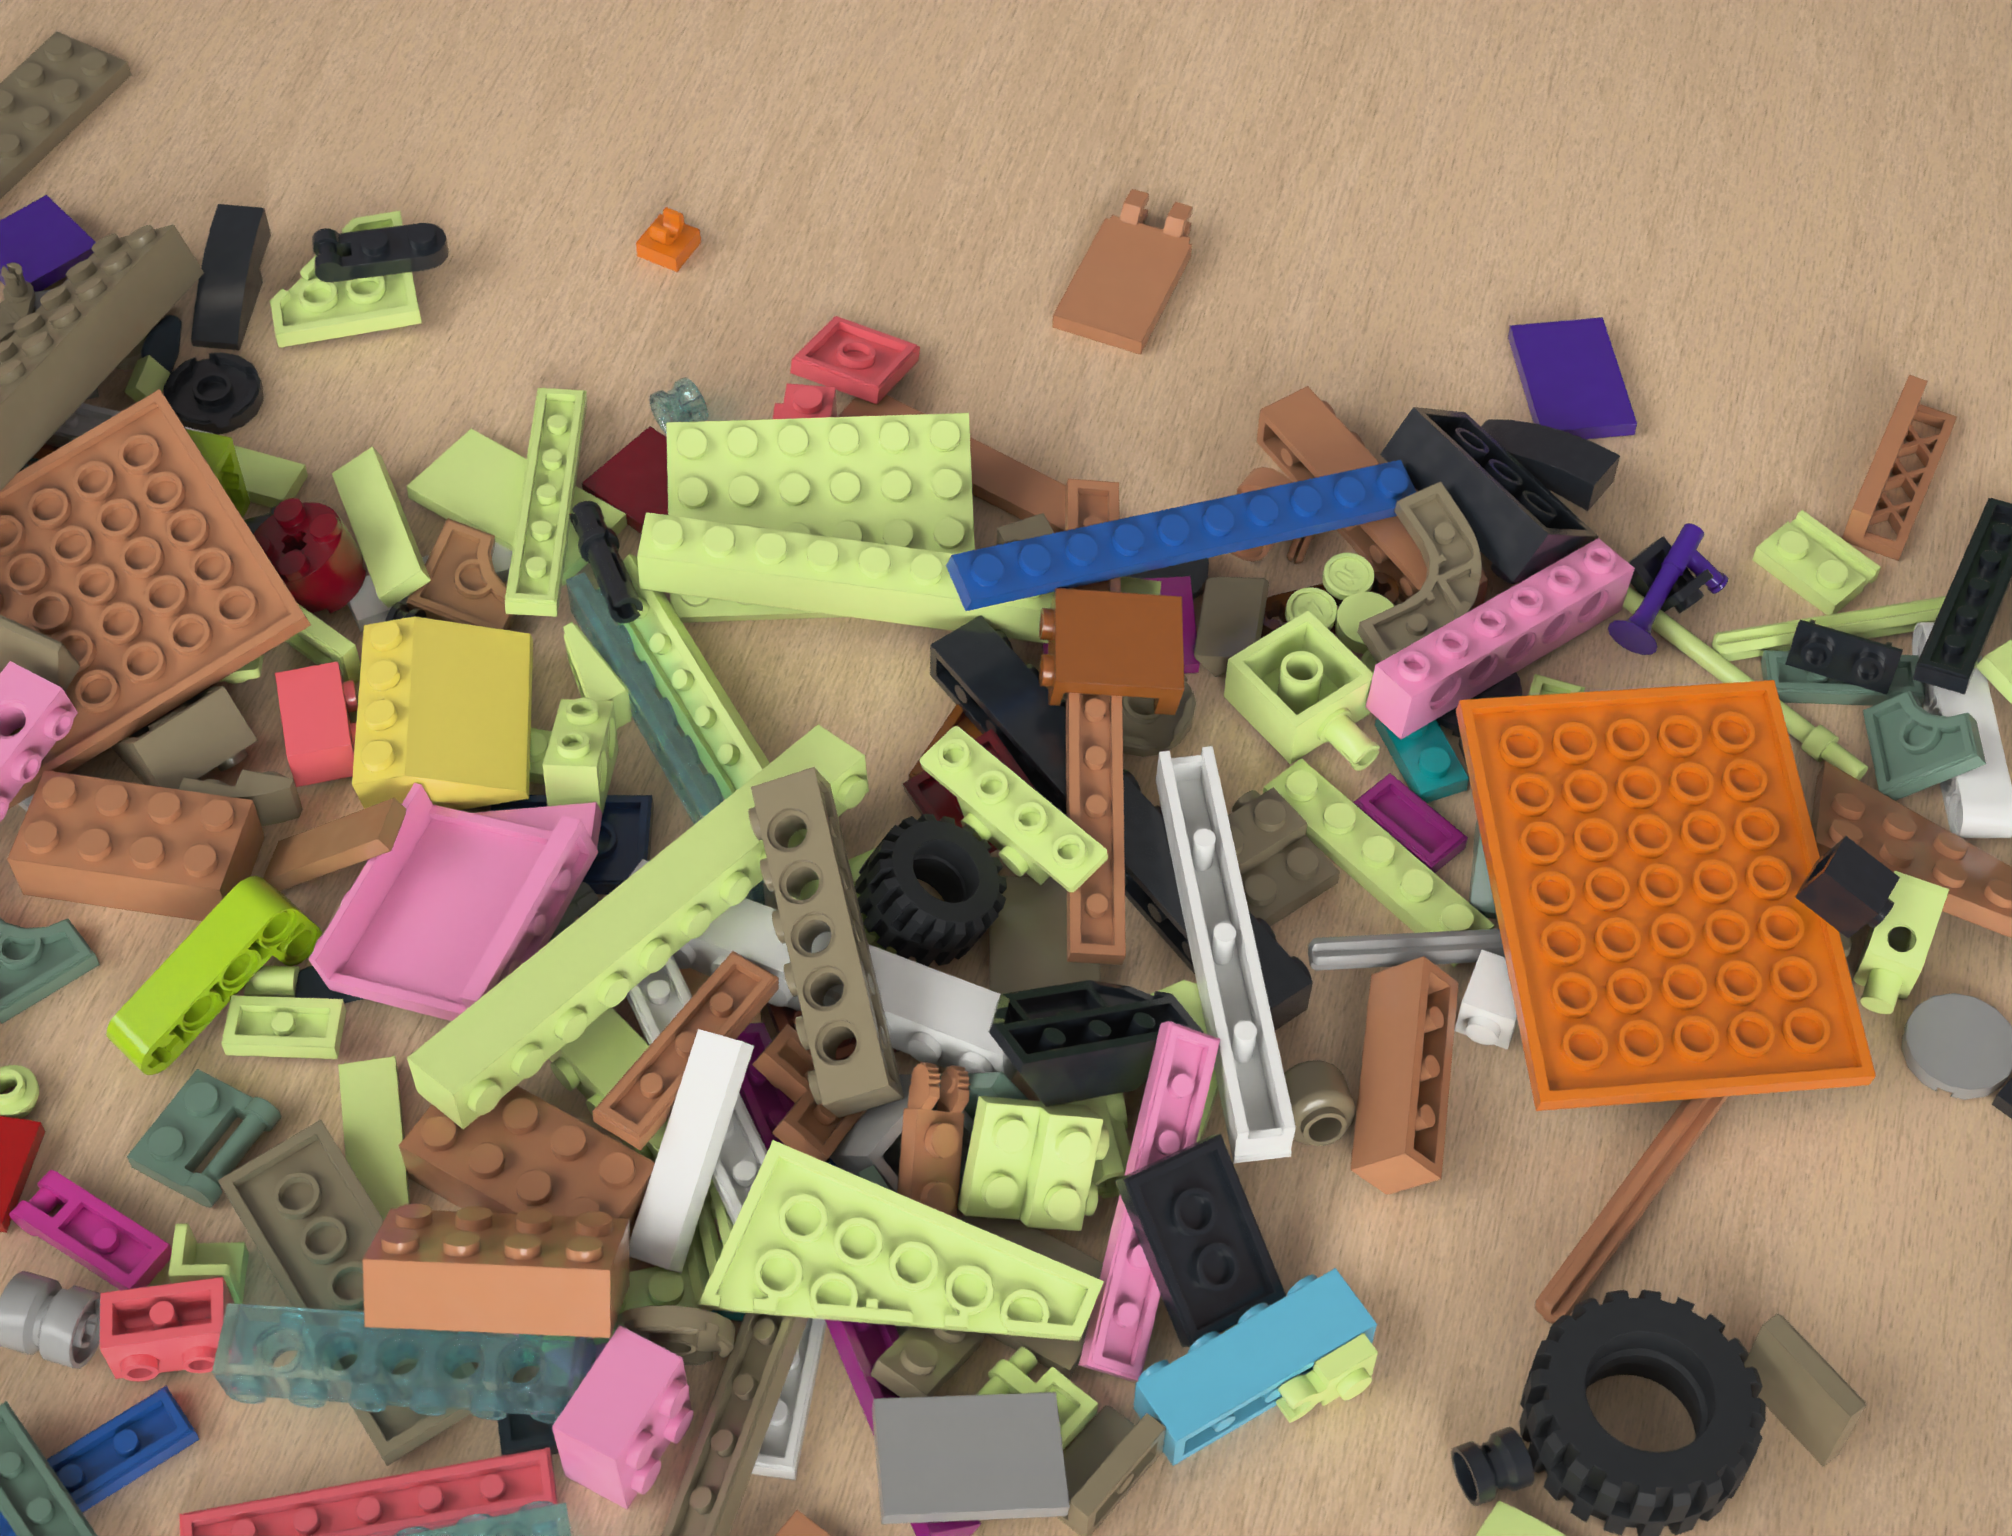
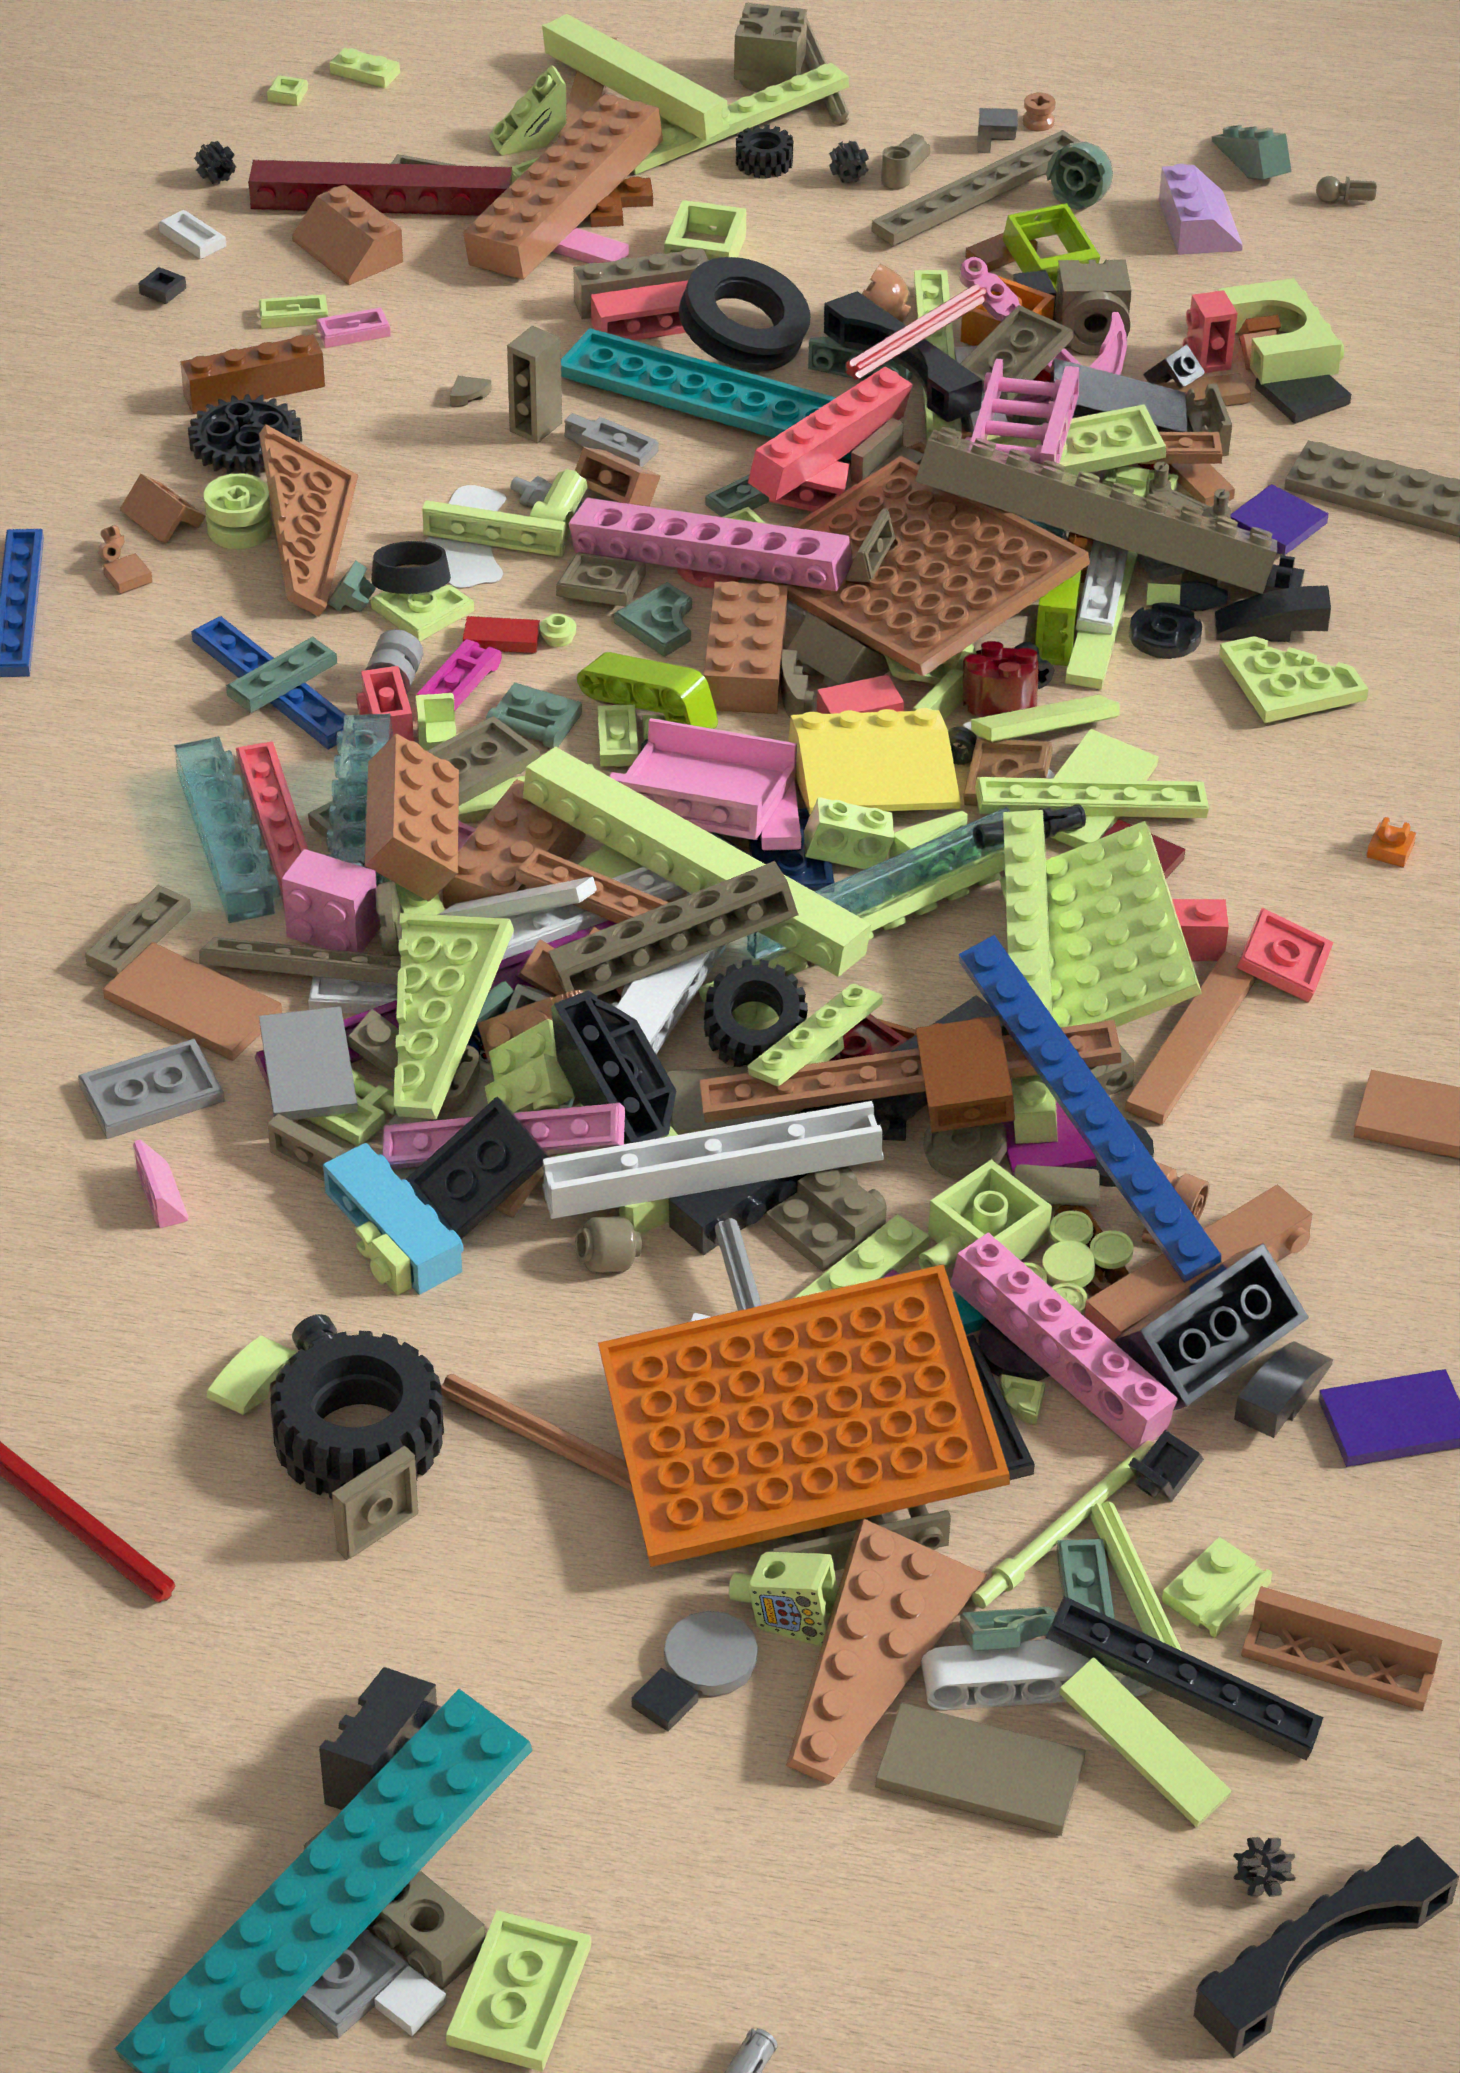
camera: 85 degrees right, 10 degrees down
(335, 845) = (749, 724): medium nougat tile -> none
(378, 251) = (1314, 679): black plate -> none
(679, 404) = (1205, 860): clear light blue wheel -> none
(1405, 1076) = (630, 1287): nougat brick -> none
(1451, 576) = (1110, 1294): dark tan plate -> none
(1636, 631) = (1185, 1467): dark purple piece -> none
(1843, 656) = (1099, 1563): black hinge -> none
(1849, 888) = (802, 1514): black brick -> none

